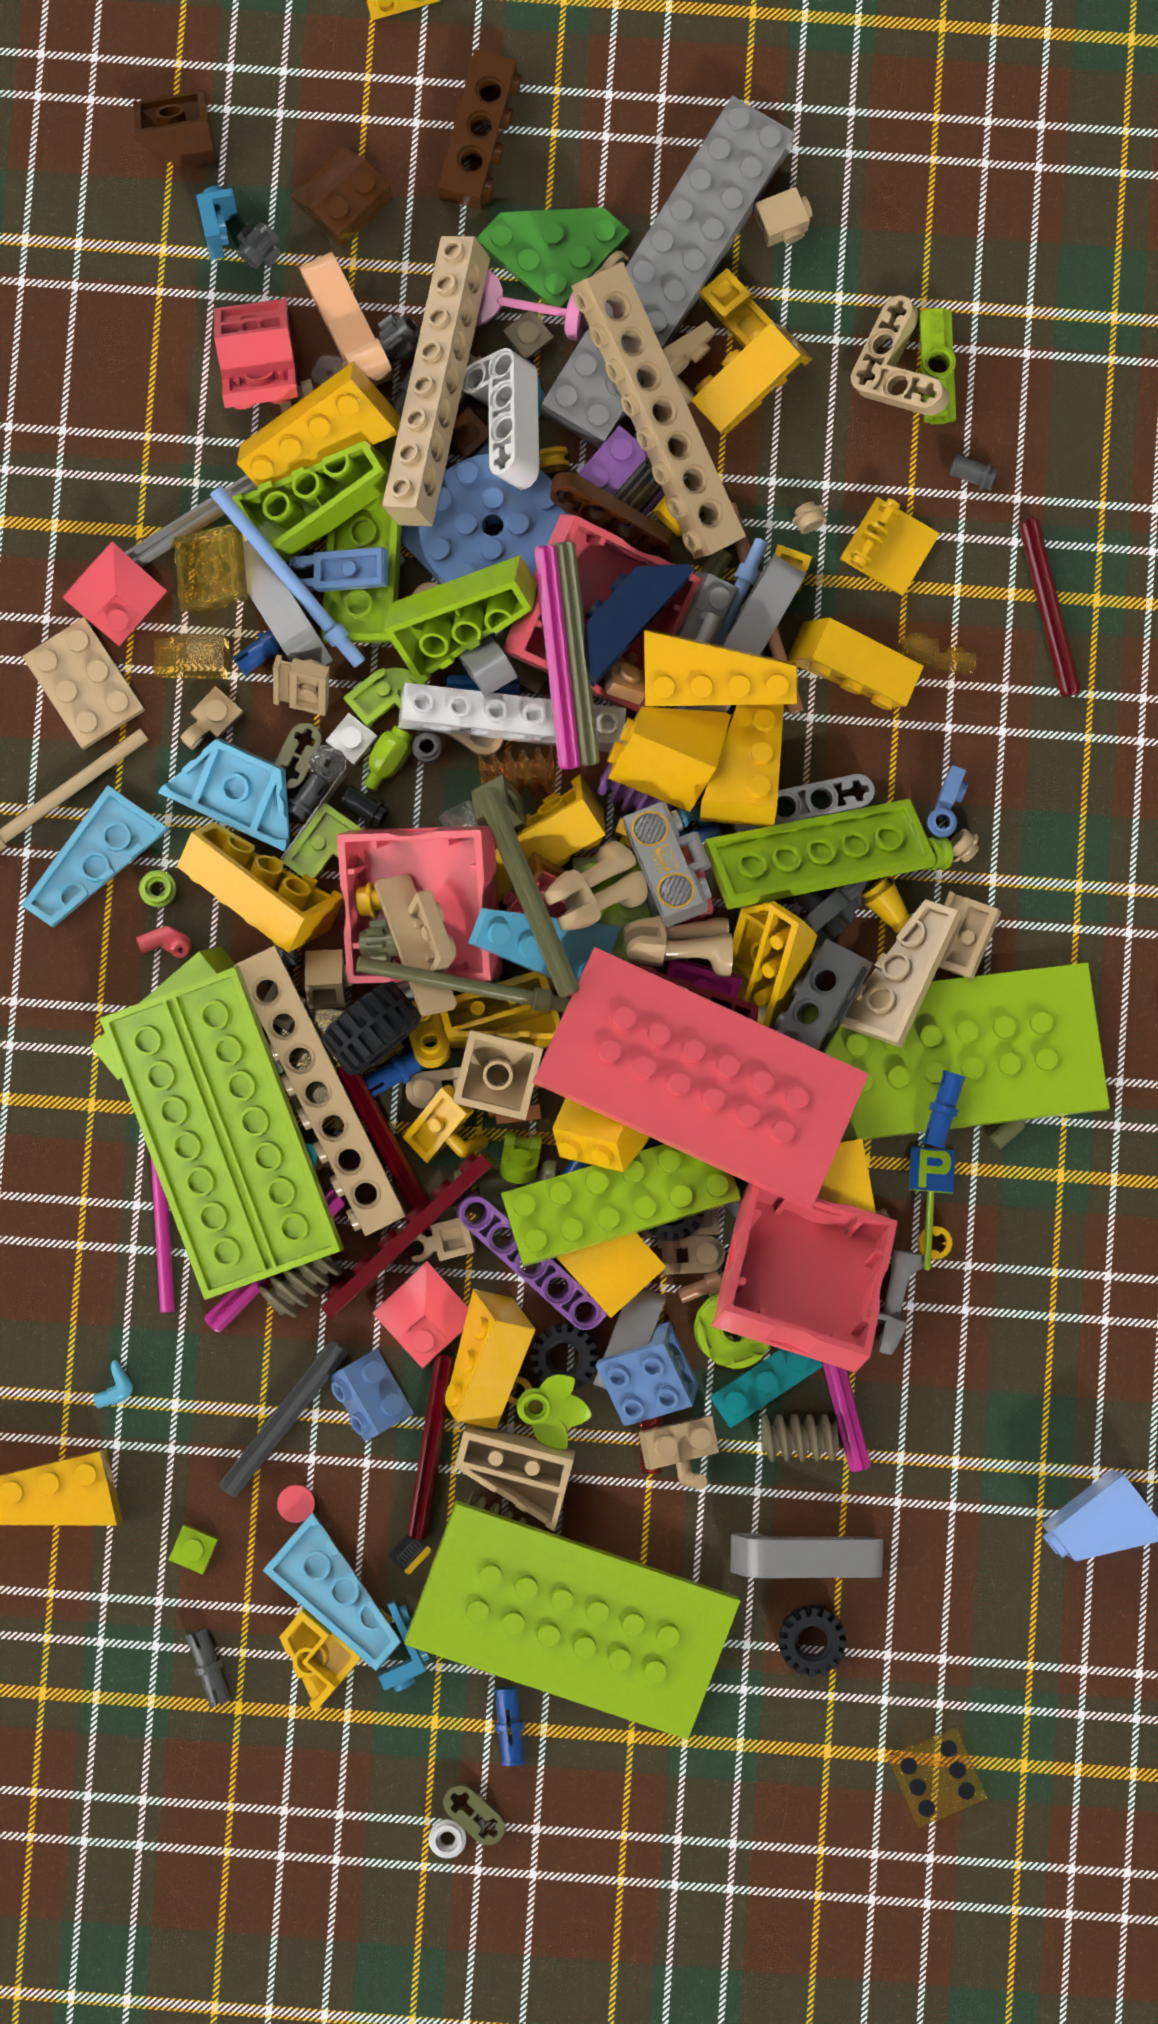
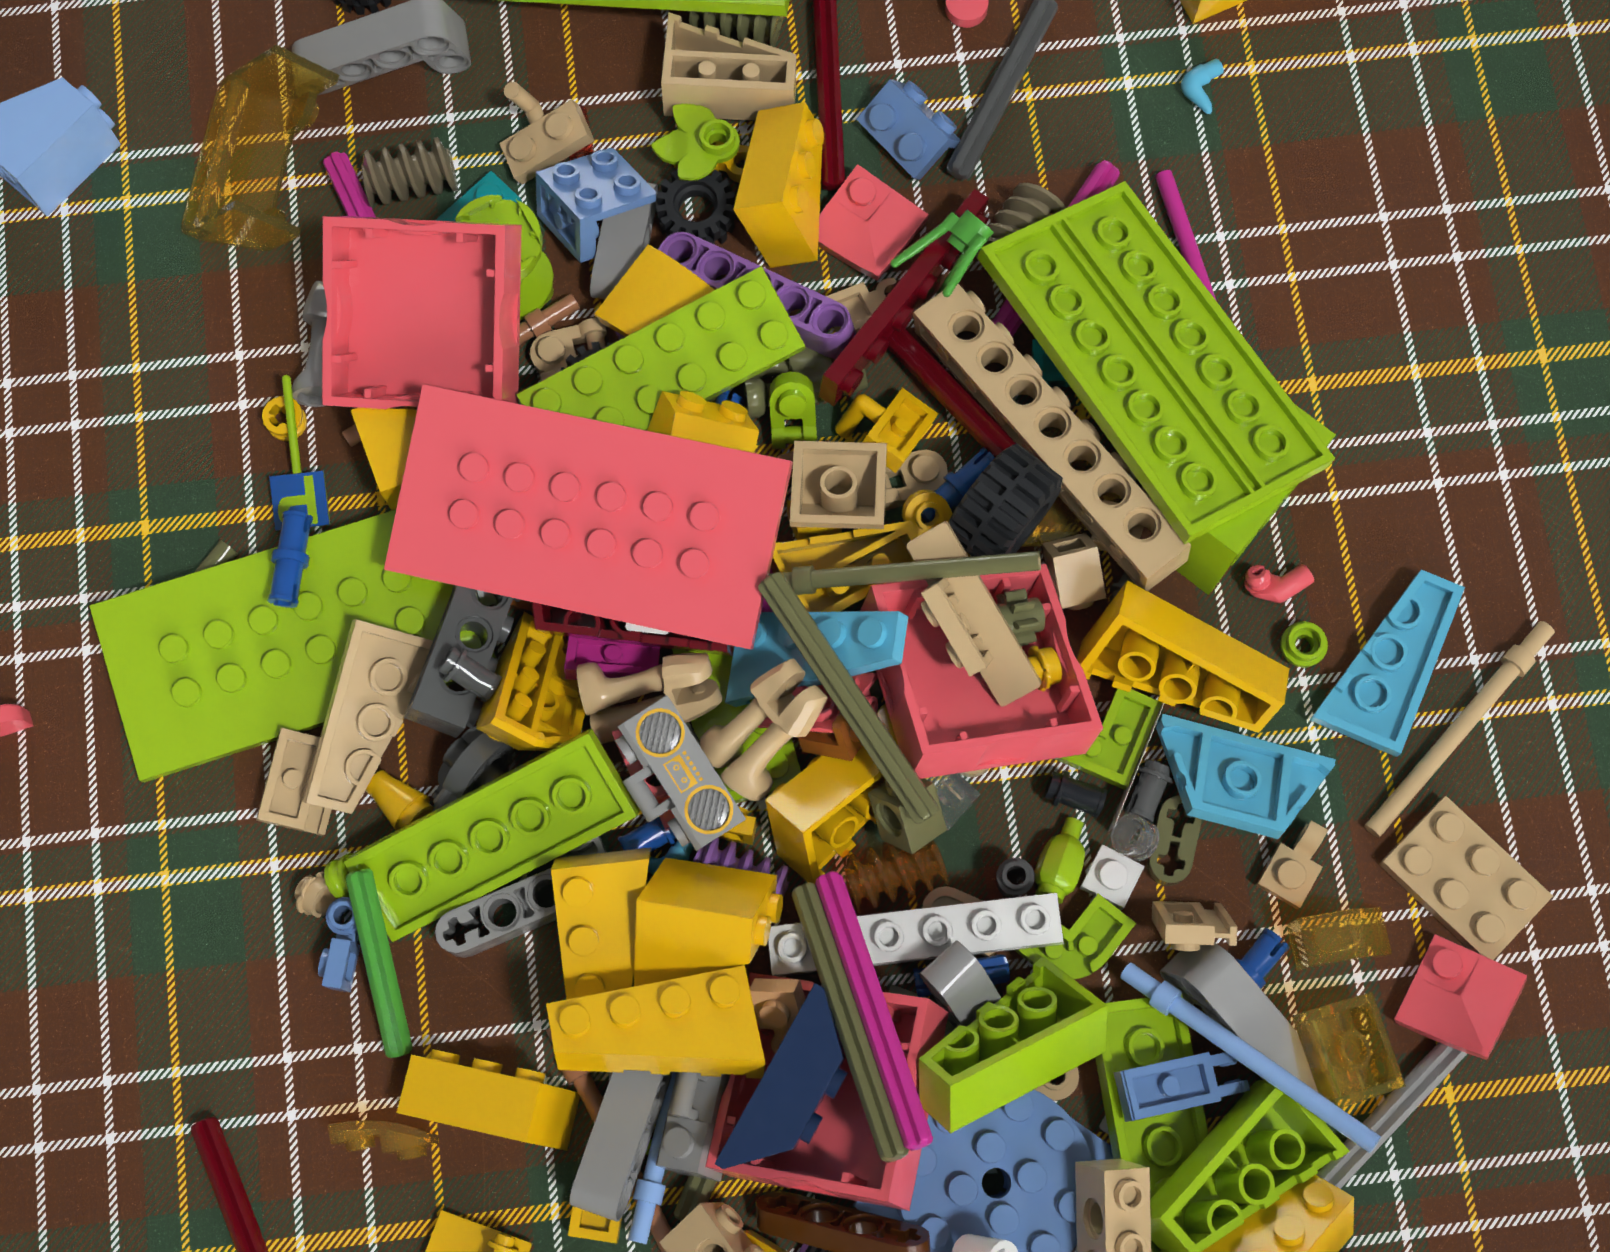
camera: 170 degrees right, 10 degrees down
(348, 1264) = (967, 237): none -> bright green plant
(822, 982) = (469, 673): none -> dark grey pin
(921, 781) = (379, 963): none -> bright green axle
(937, 1479) = (249, 148): none -> clear yellow windscreen

